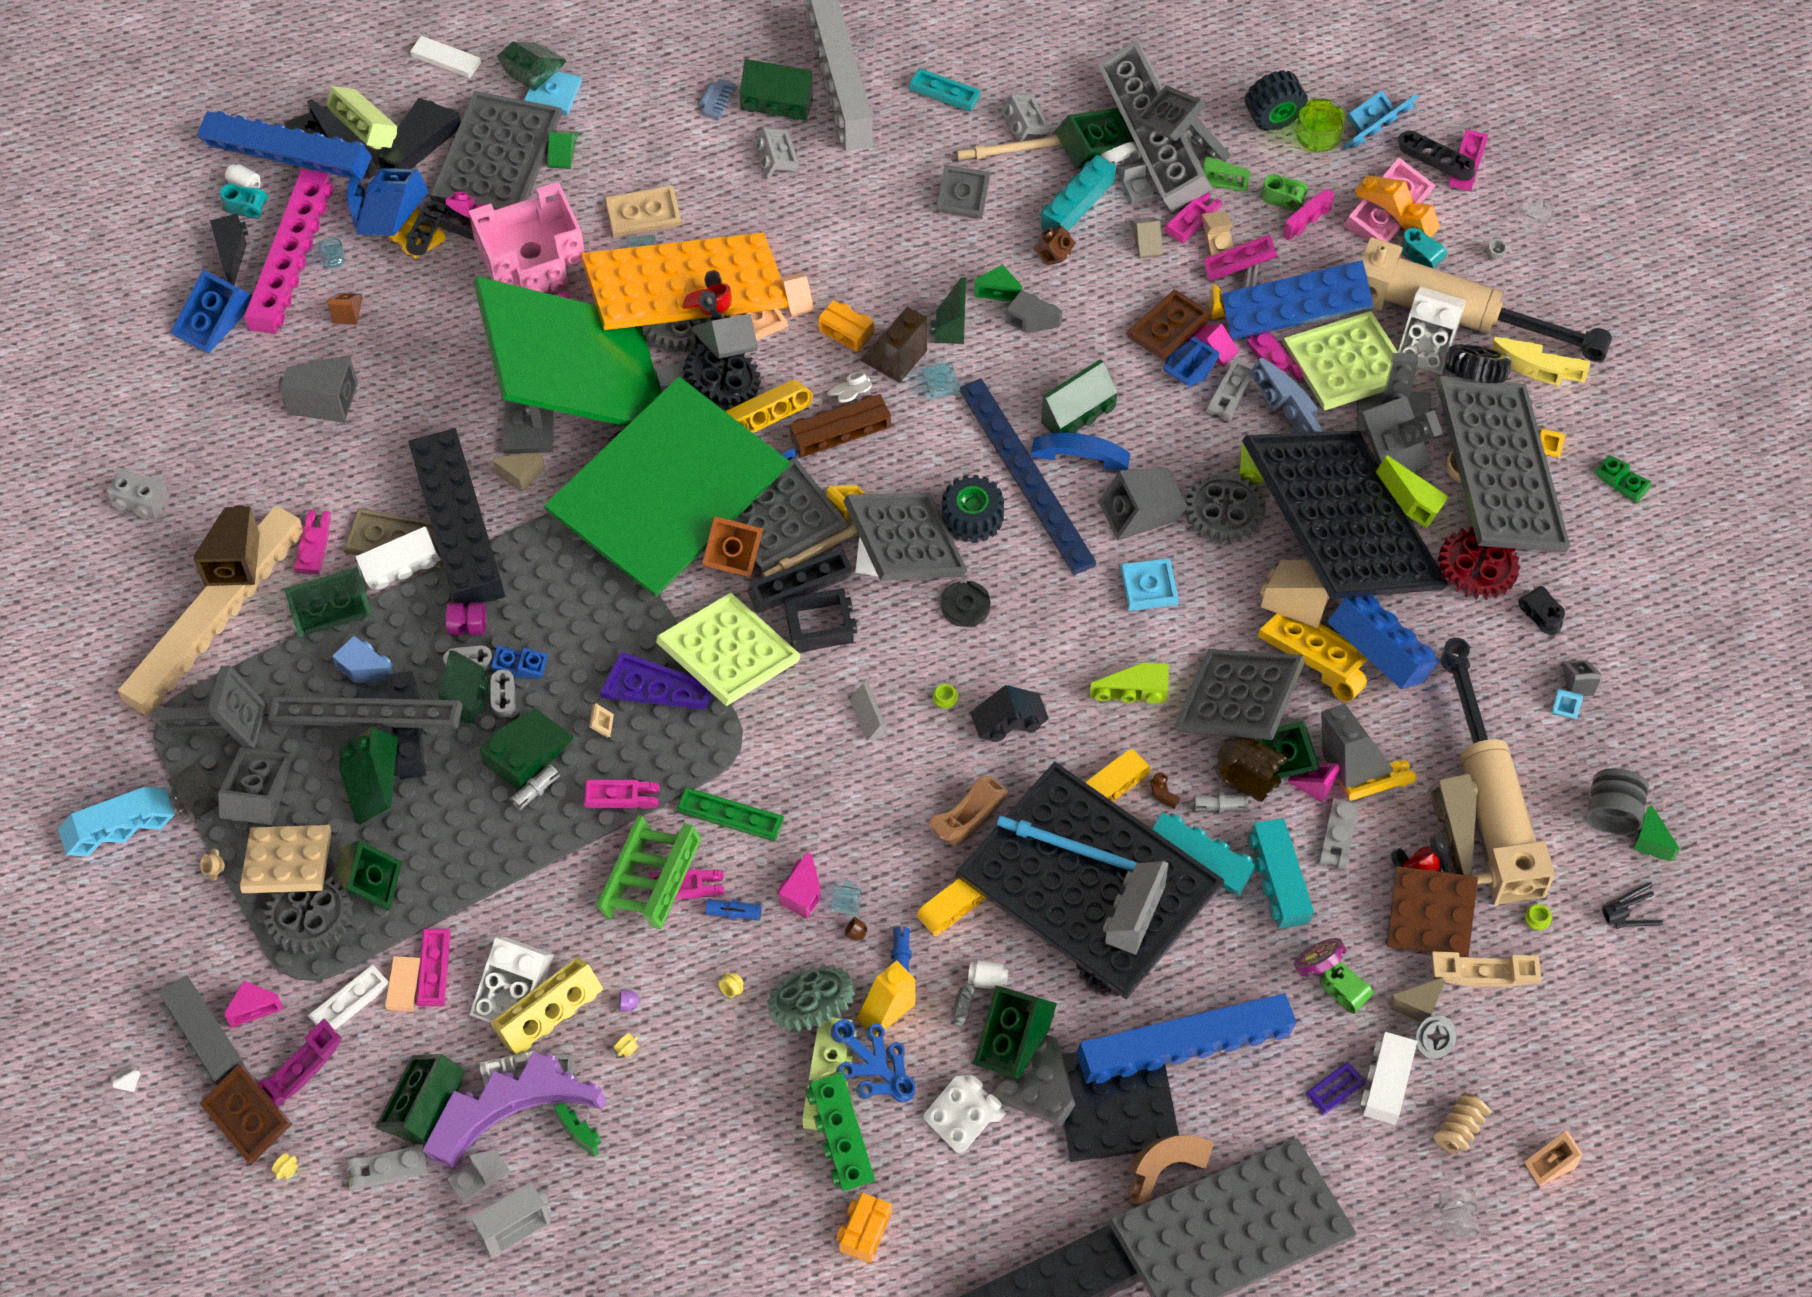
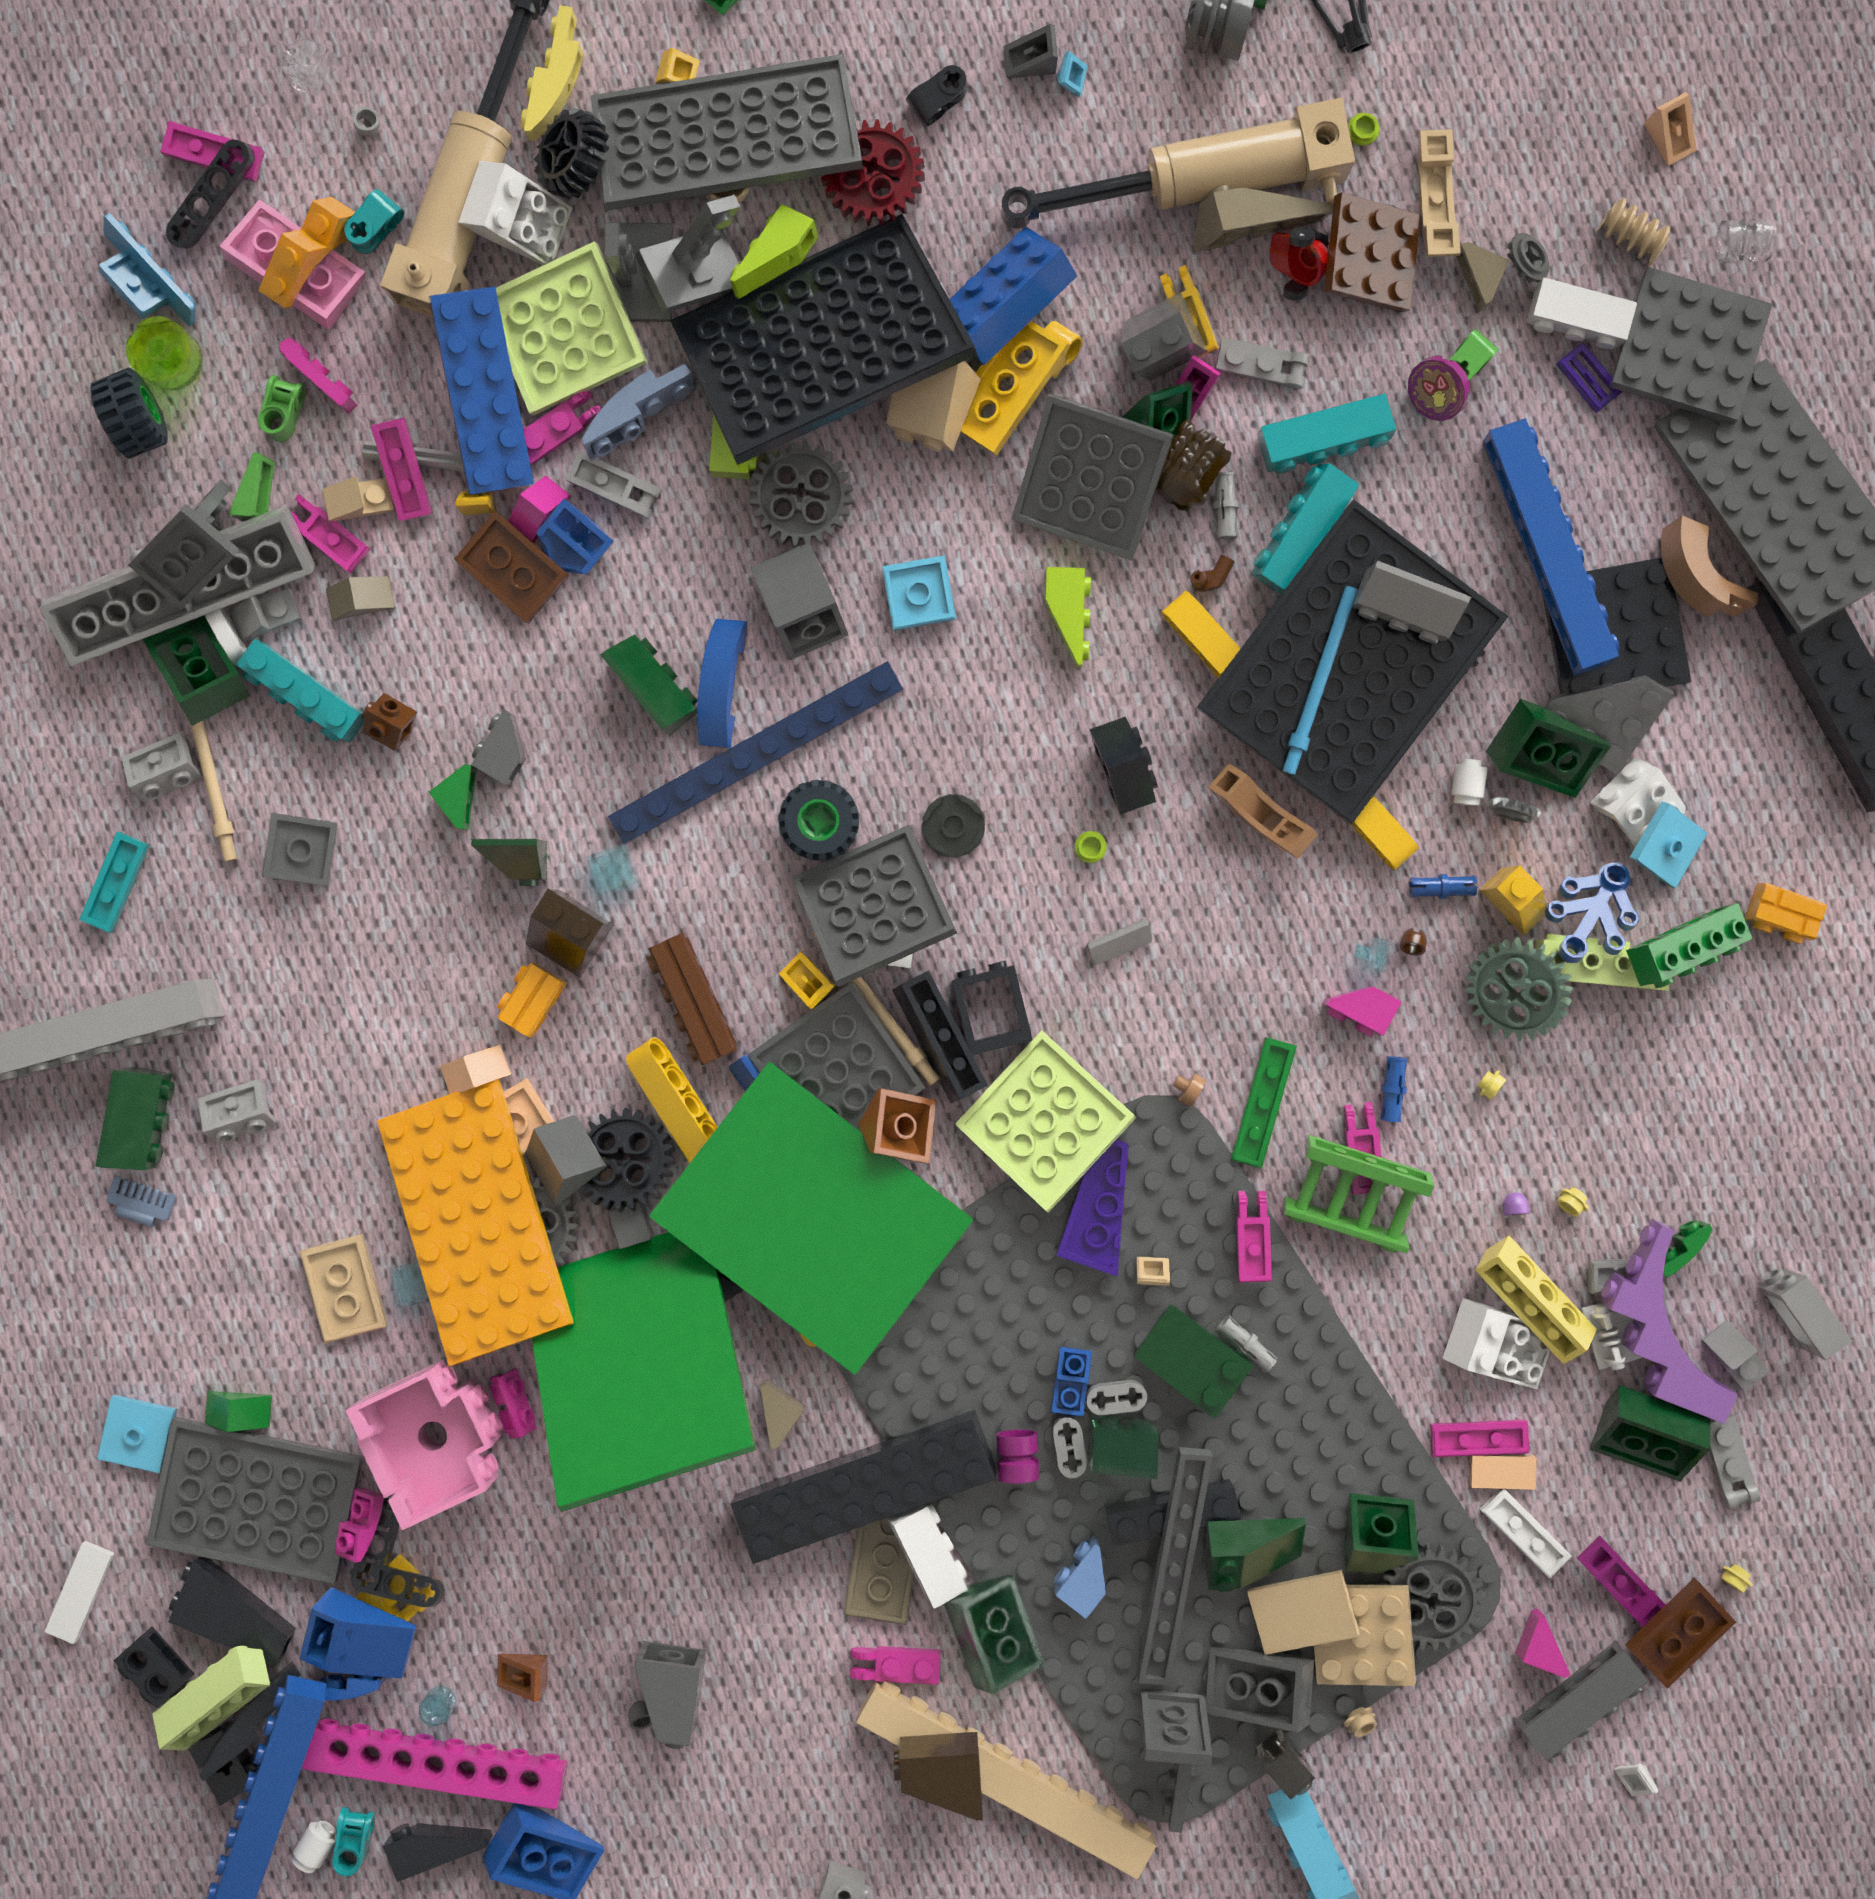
camera: 90 degrees left, 30 degrees up
(311, 814) = (1303, 1612): none -> tan tile
(389, 91) = (160, 1661): none -> black brick
(530, 63) = (93, 1469): clear green slope -> none
(712, 300) = (523, 1185): cap -> none
(745, 757) = (1190, 1088): none -> medium nougat tile
(847, 391) = (633, 987): white plate -> none
(928, 1129) = (1668, 844): none -> medium azure plate
(1364, 1165) = (1691, 345): none -> dark grey plate

